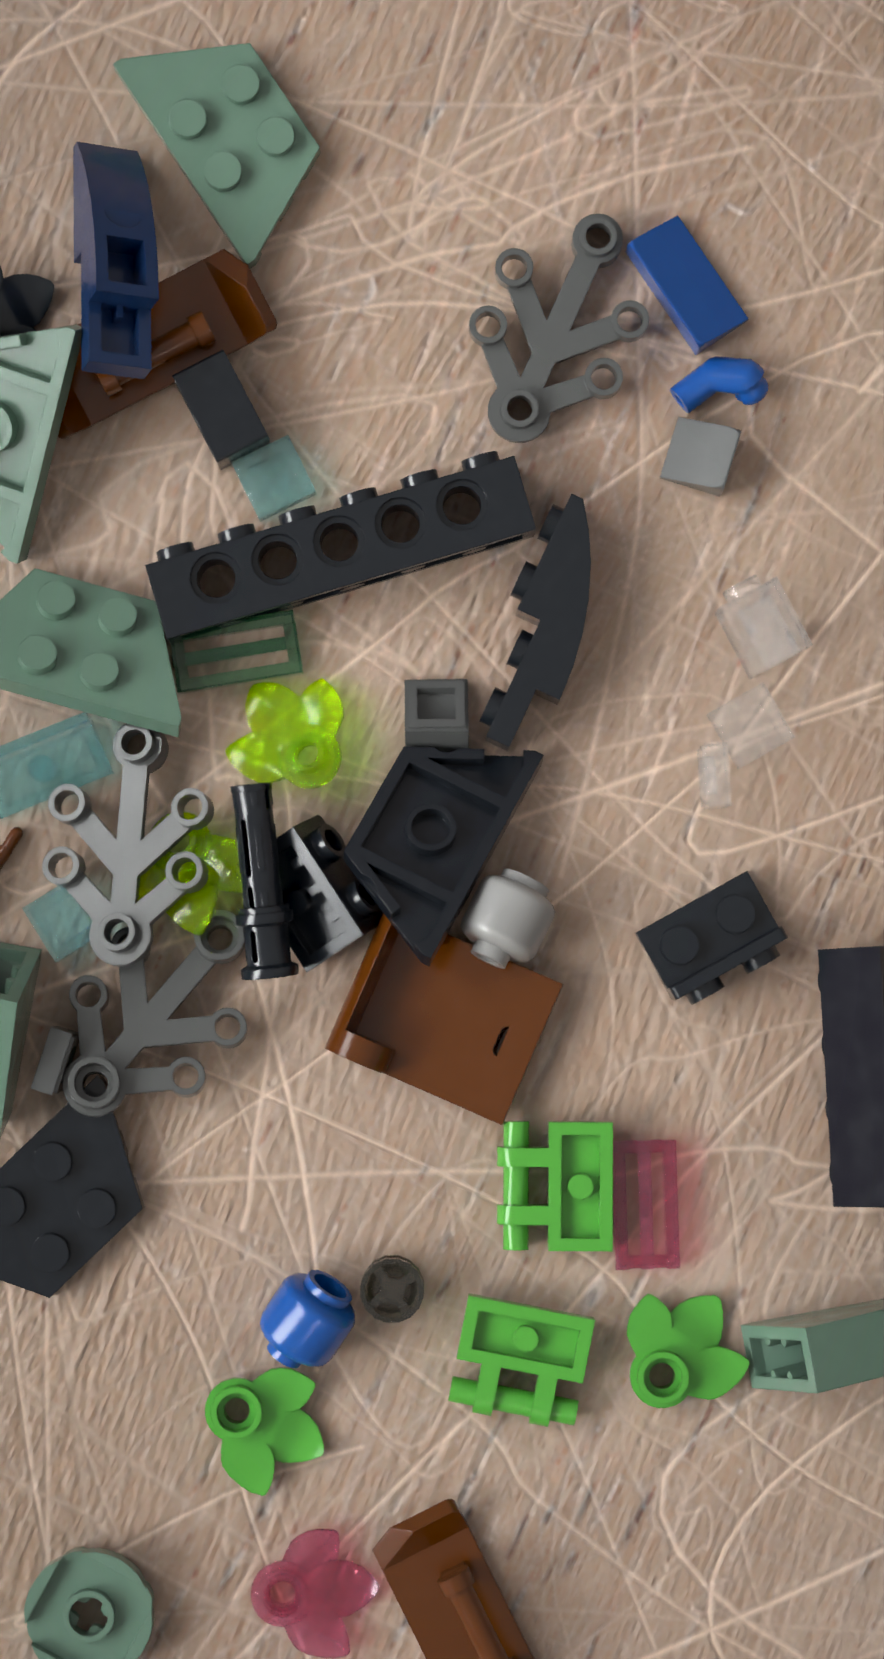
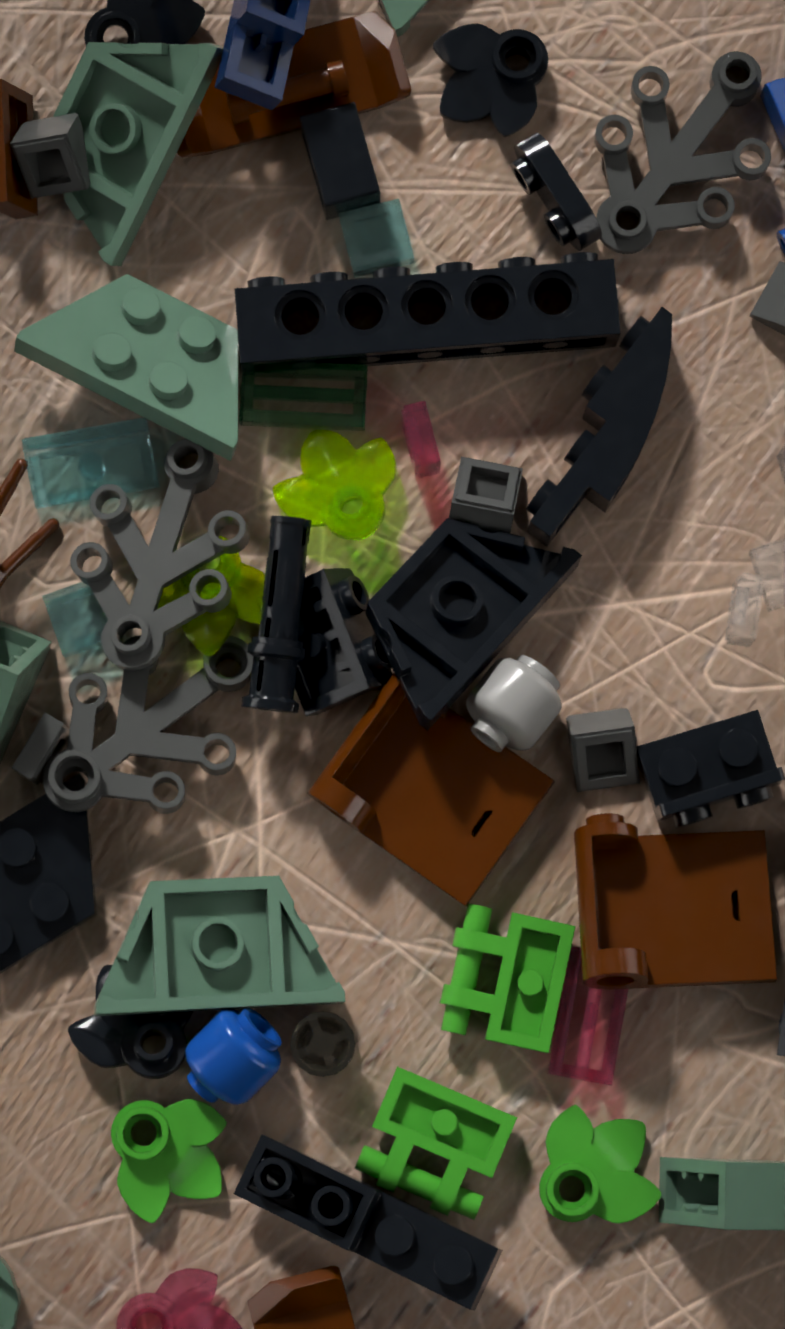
camera: 15 degrees right, 5 degrees down
(198, 1299) = (119, 1039): none -> black plate
(269, 1220) = (216, 950): none -> sand green wing
(346, 296) = (484, 82): none -> black plate
(360, 674) = (420, 439): none -> clear pink tile
(460, 417) = (568, 212): none -> black plate
(472, 1450) = (368, 1222): none -> black slope
(603, 940) = (603, 749): none -> dark grey slope
(694, 1086) = (665, 907): none -> reddish brown door

